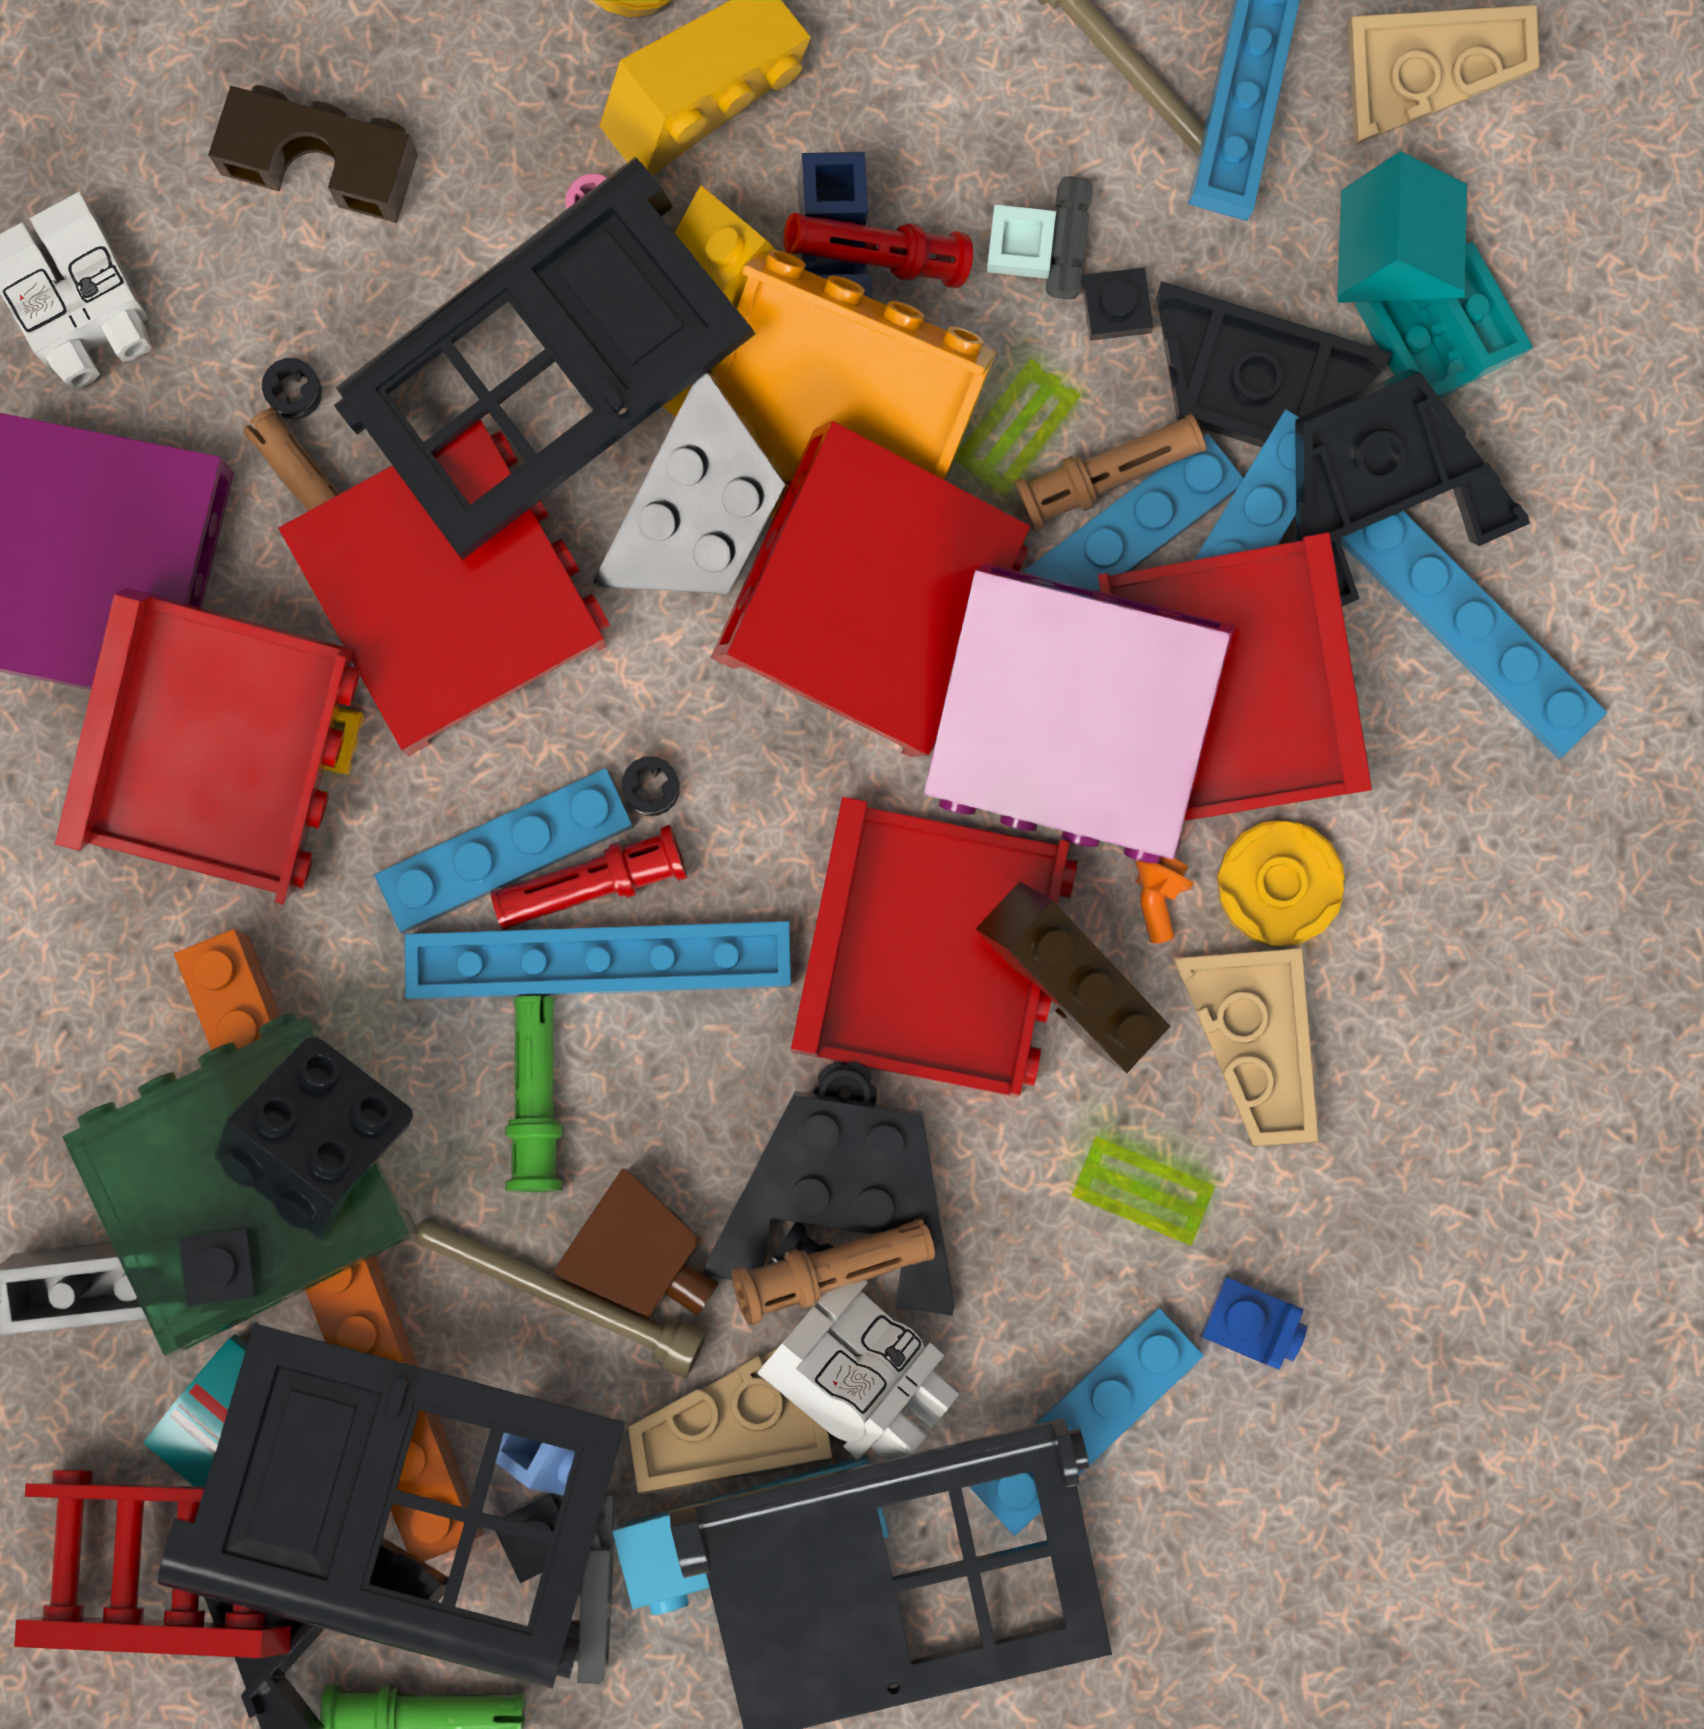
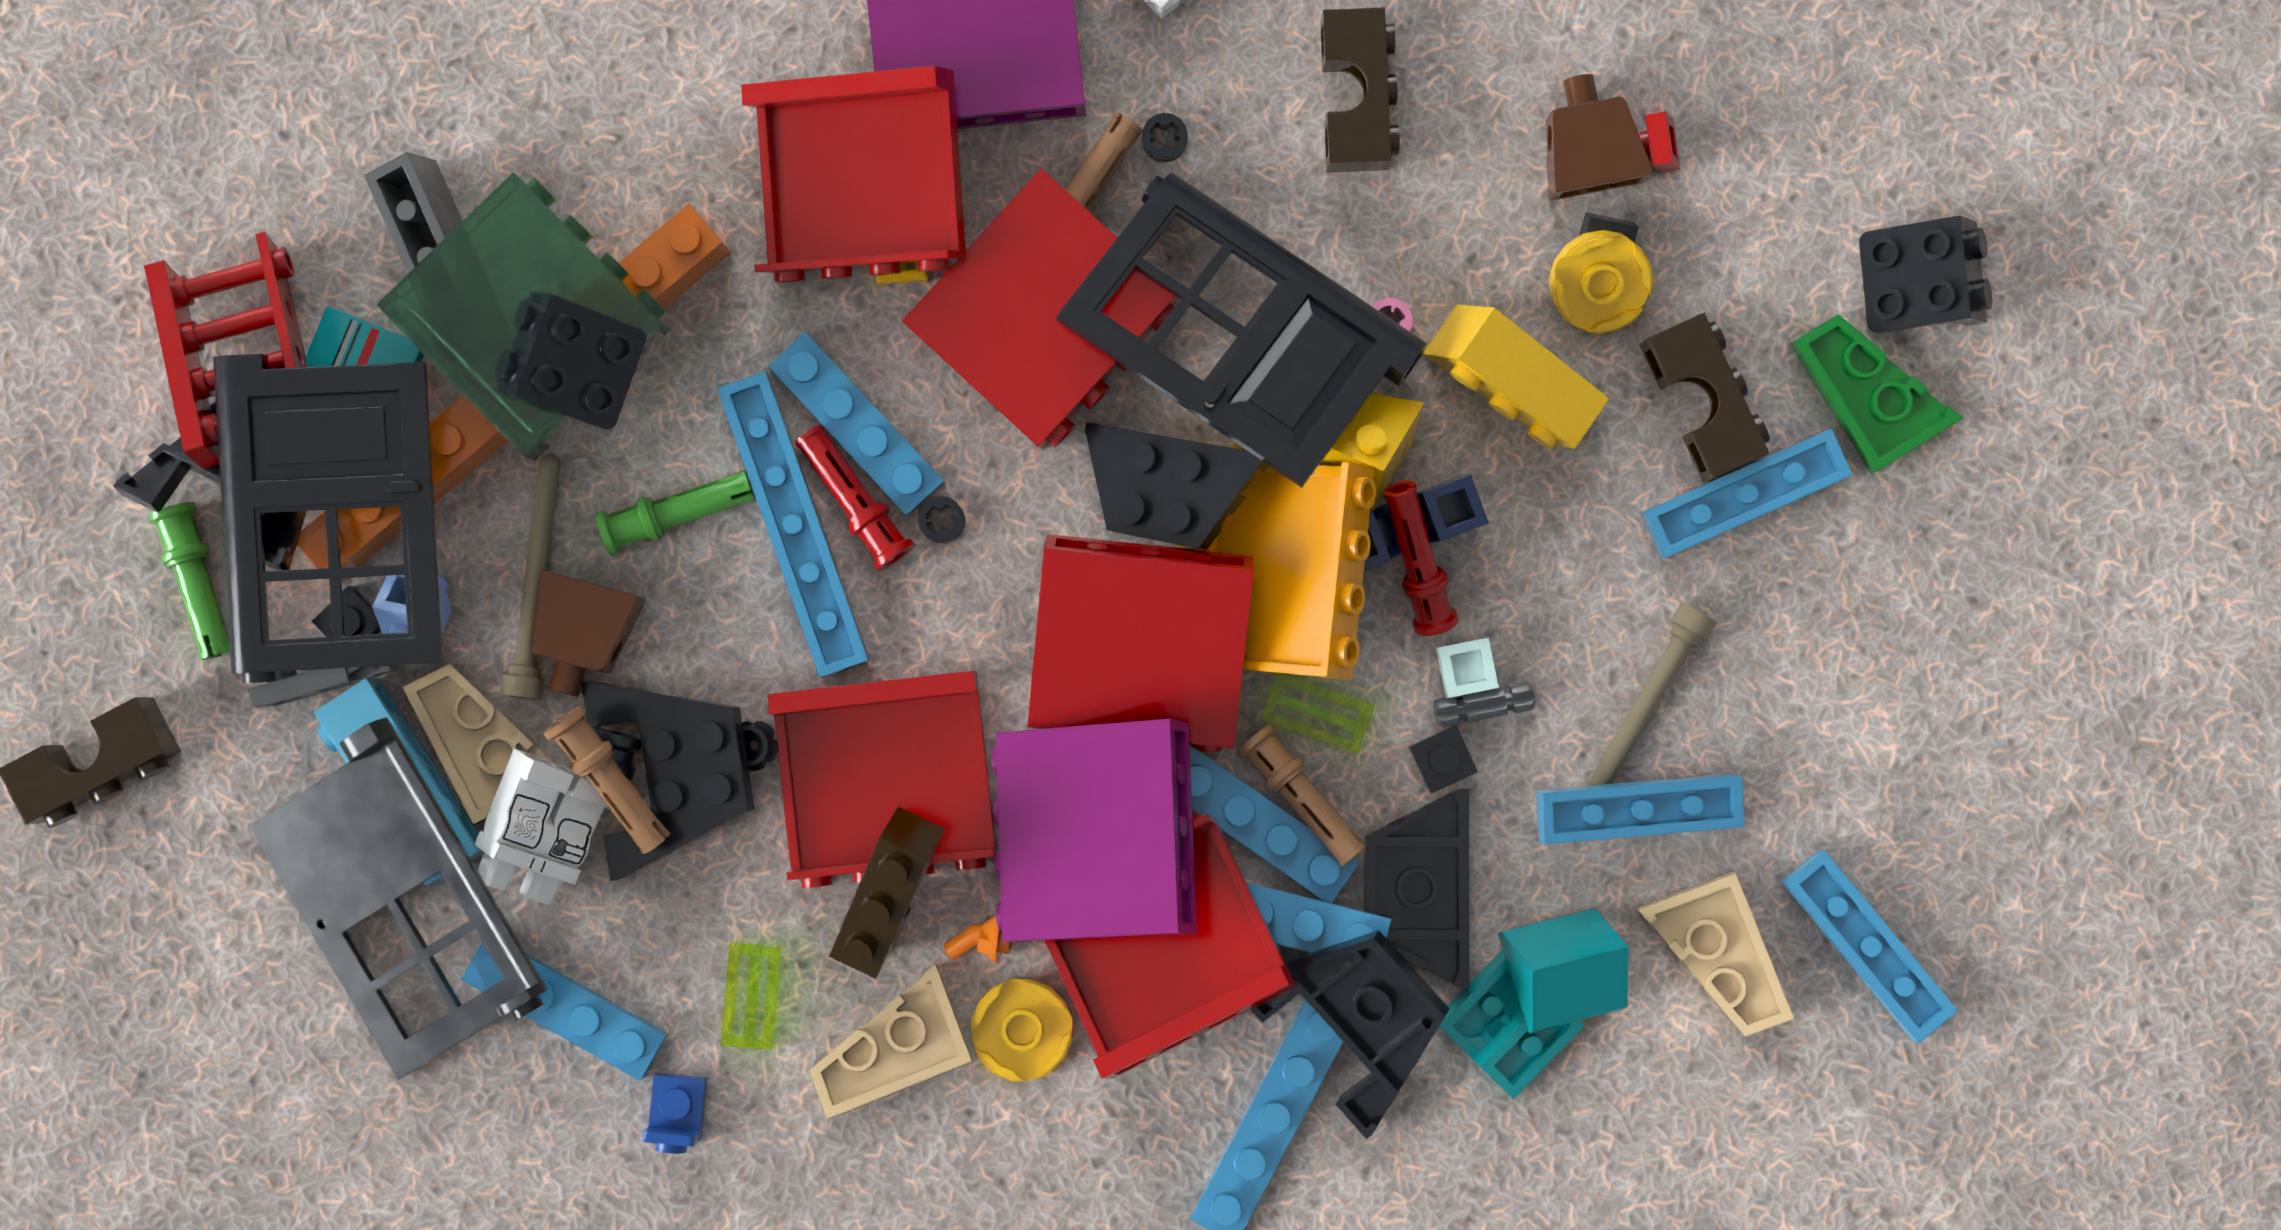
camera: 75 degrees right, 5 degrees up
(219, 1267) = (451, 323): black plate -> none

